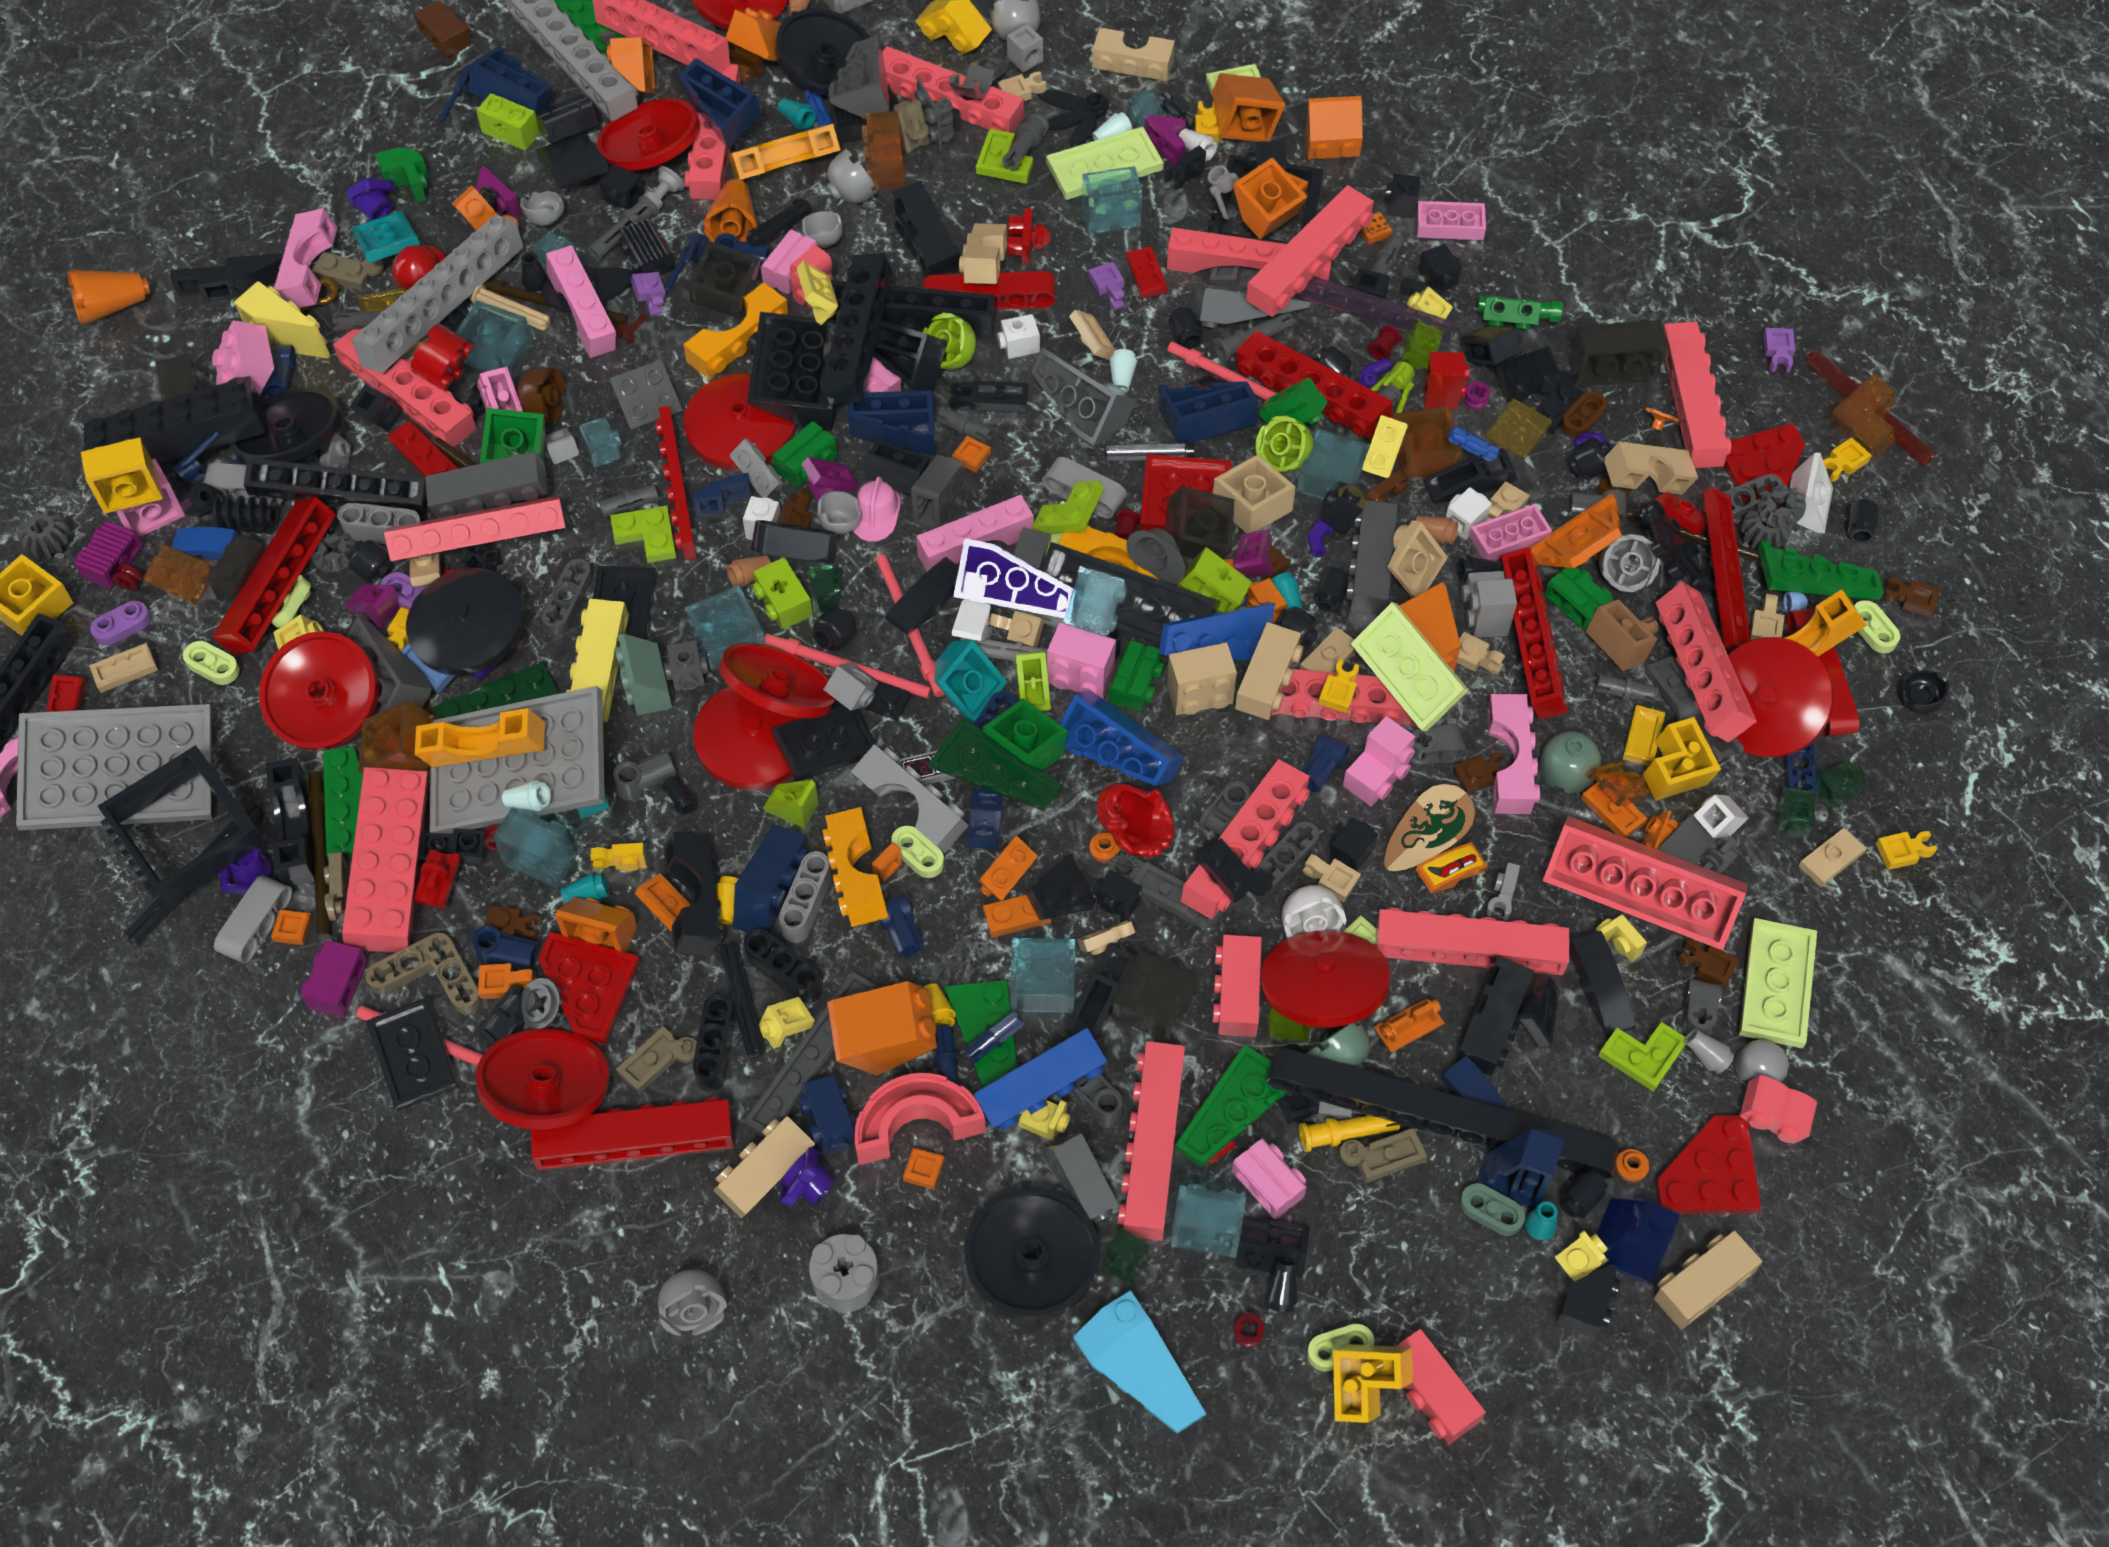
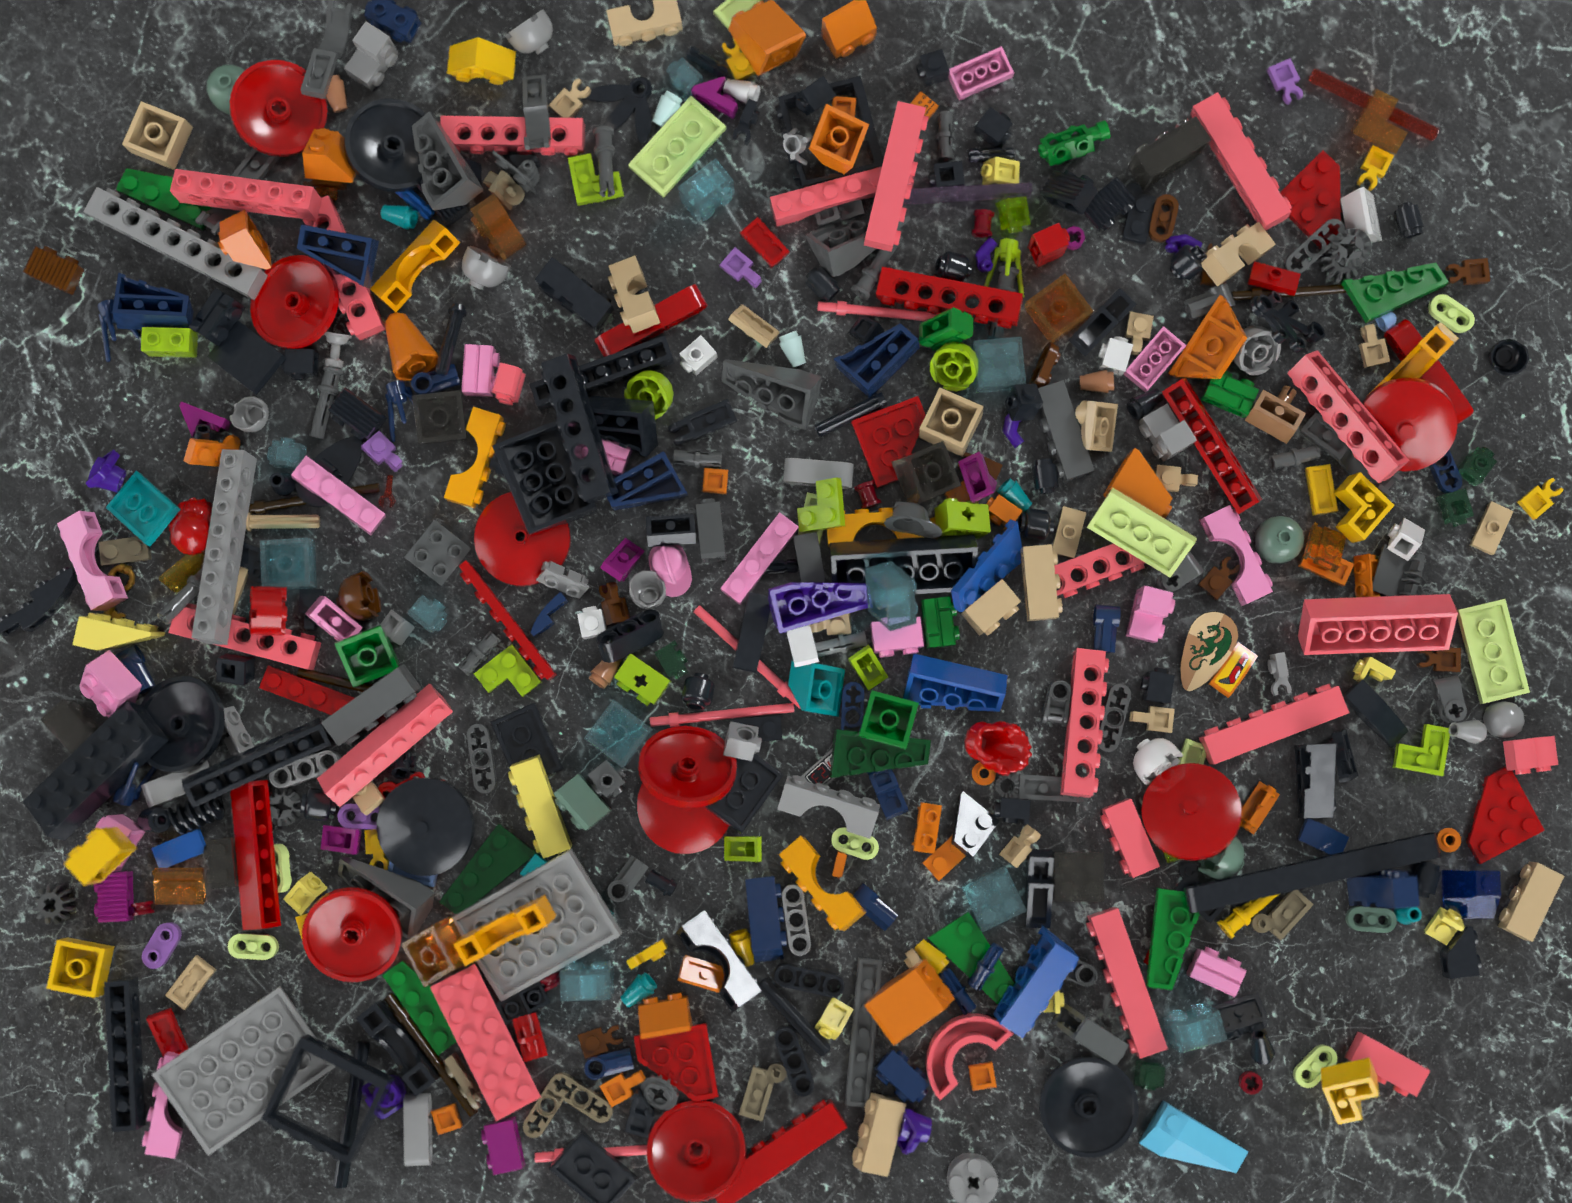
camera: 25 degrees left, 25 degrees up
(404, 168) = (112, 428): green brick -> none
(527, 796) = (566, 957): light aqua cone -> none
(807, 443) = (592, 547): green brick -> none
(817, 291) = (529, 408): light yellow bracket -> none
(823, 227) = (487, 327): light grey hair -> none
(1023, 226) = (645, 244): red hips -> none
(1025, 48) = (554, 60): light grey brick -> none
(1231, 872) = (1093, 767): black hinge -> none
(1339, 688) = (1097, 574): yellow plate -> none
(1385, 447) = (1034, 335): light yellow bracket -> none
(1473, 443) = (1099, 301): blue axle -> none
(1519, 429) = (1119, 256): clear yellow piece -> none
(1660, 418) = (1222, 193): orange plant -> none
(1726, 569) = (1329, 320): red plate -> none

